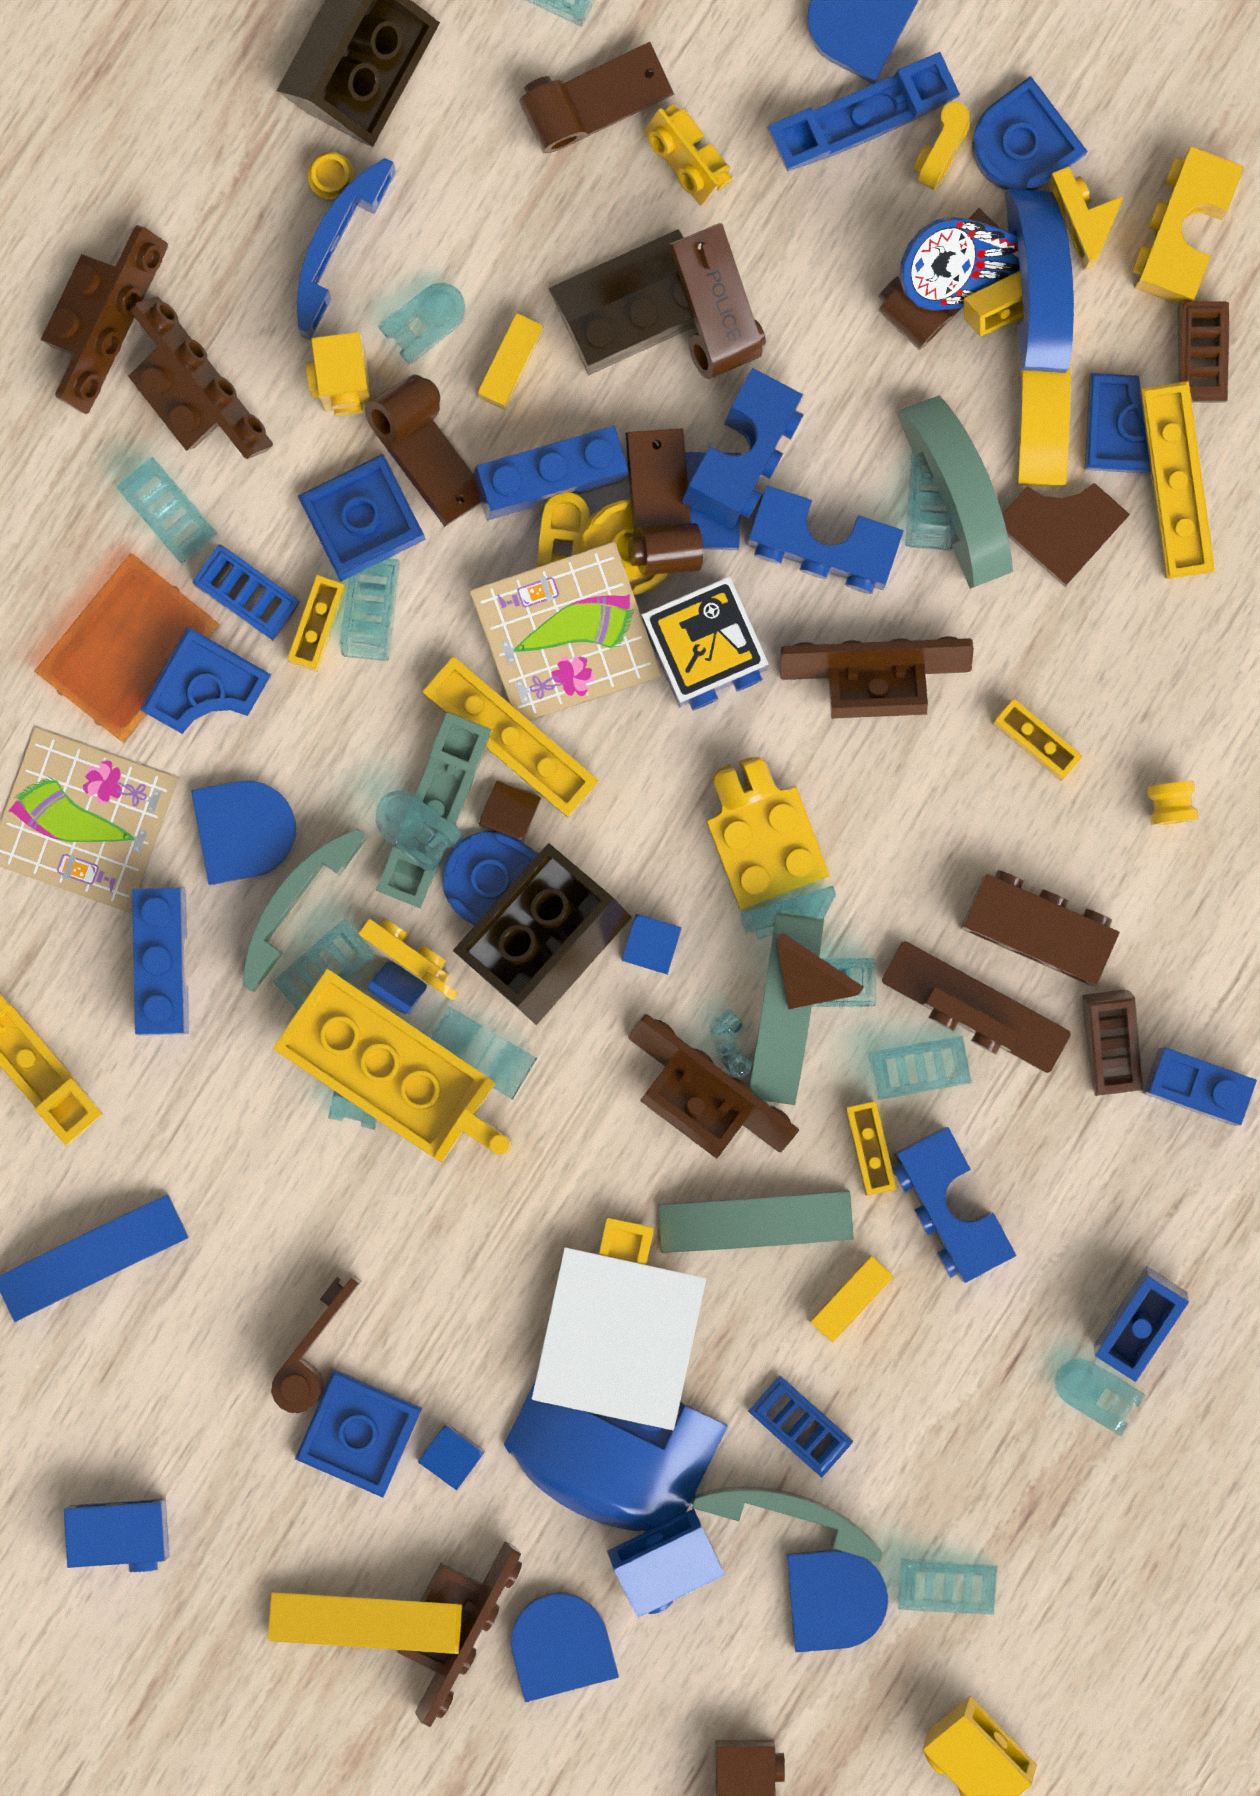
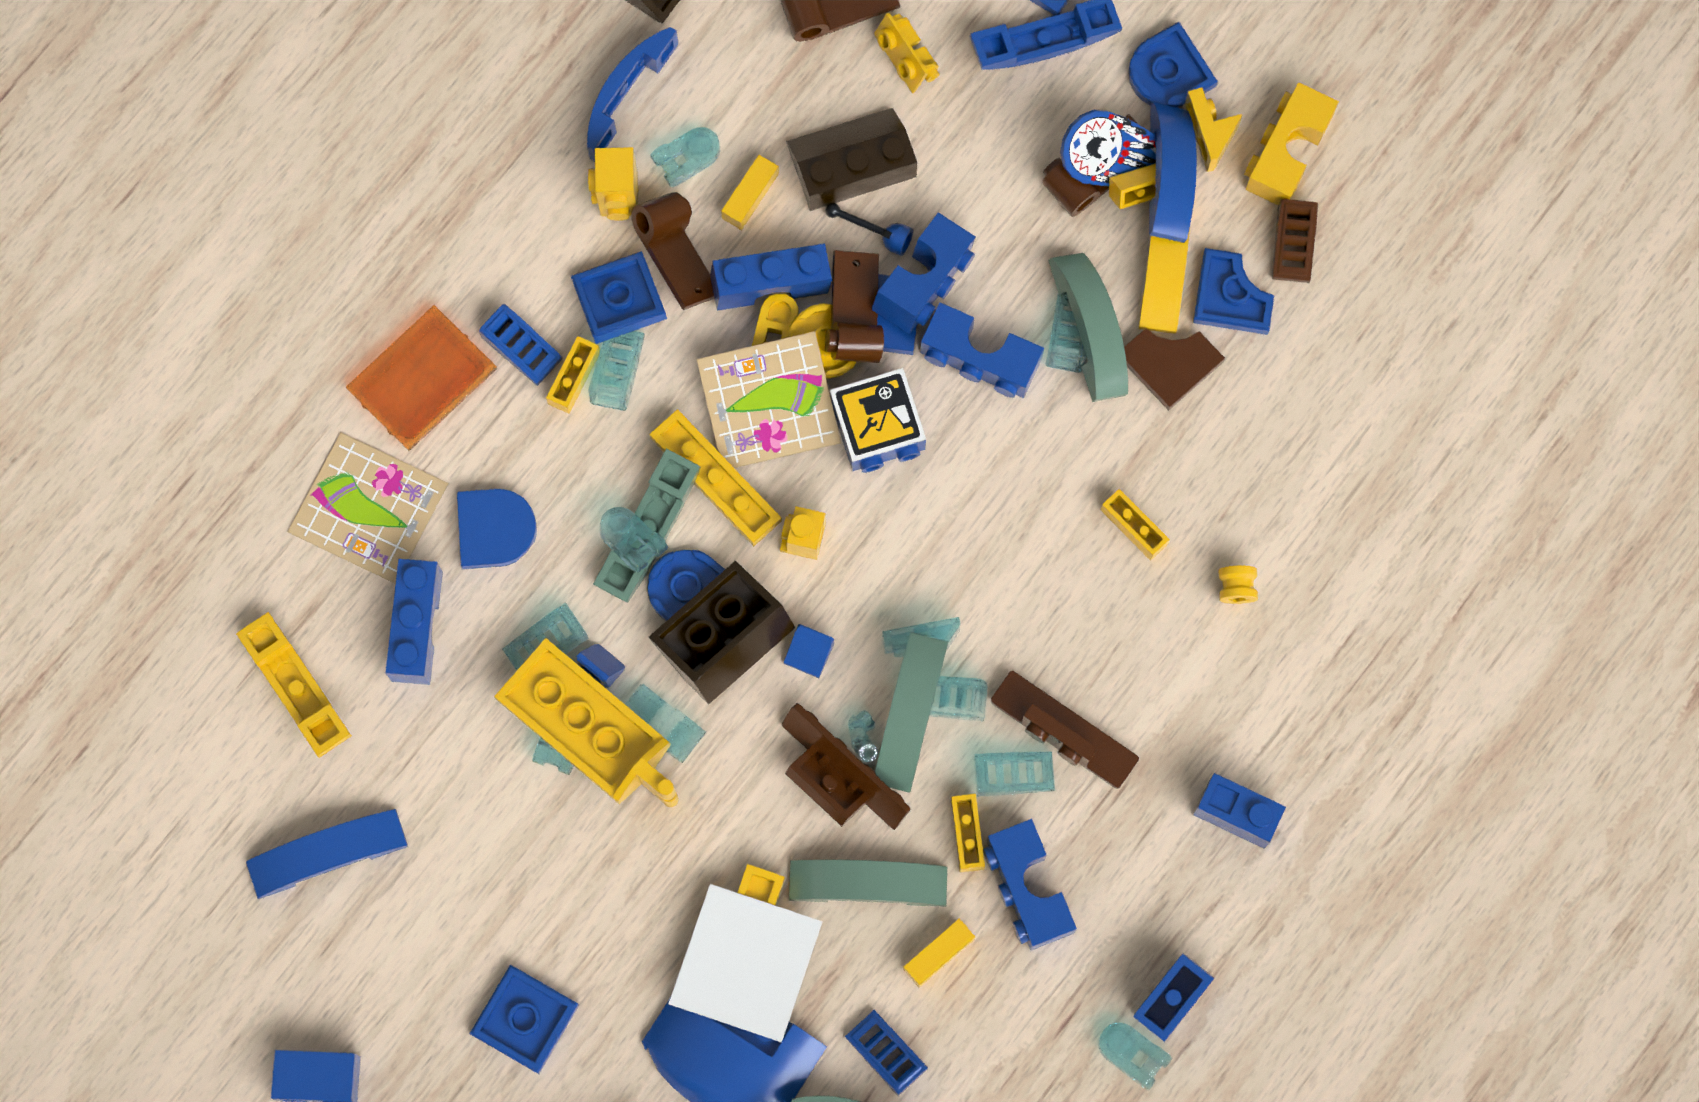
camera: 10 degrees right, 10 degrees down
(97, 315) = (434, 123): reddish brown bracket -> none
(142, 476) = (449, 249): clear light blue slope -> none
(188, 388) = (495, 186): reddish brown bracket -> none
(202, 680) = (476, 407): blue tile -> none
(262, 955) = (563, 553): sand green slope -> none
(298, 1382) = (477, 969): reddish brown door -> none
(330, 175) = (625, 38): yellow plate -> none
(424, 963) = (623, 646): yellow hinge -> none
(451, 1456) = (597, 1046): blue slope -> none
(509, 811) = (707, 536): reddish brown slope -> none
(627, 796) = (803, 533): none -> yellow brick
(699, 401) = (895, 236): none -> hinge
(718, 302) = (916, 159): reddish brown door -> none
(763, 835) = (907, 575): yellow plate -> none
(810, 978) = (932, 682): reddish brown slope -> none
(877, 676) = (1012, 459): reddish brown bracket -> none
(936, 160) = (1100, 75): yellow plate -> none
(1041, 927) = (1122, 671): reddish brown brick -> none
(1093, 1024) = (1186, 770): reddish brown slope -> none
(1177, 480) = (1265, 335): yellow tile -> none

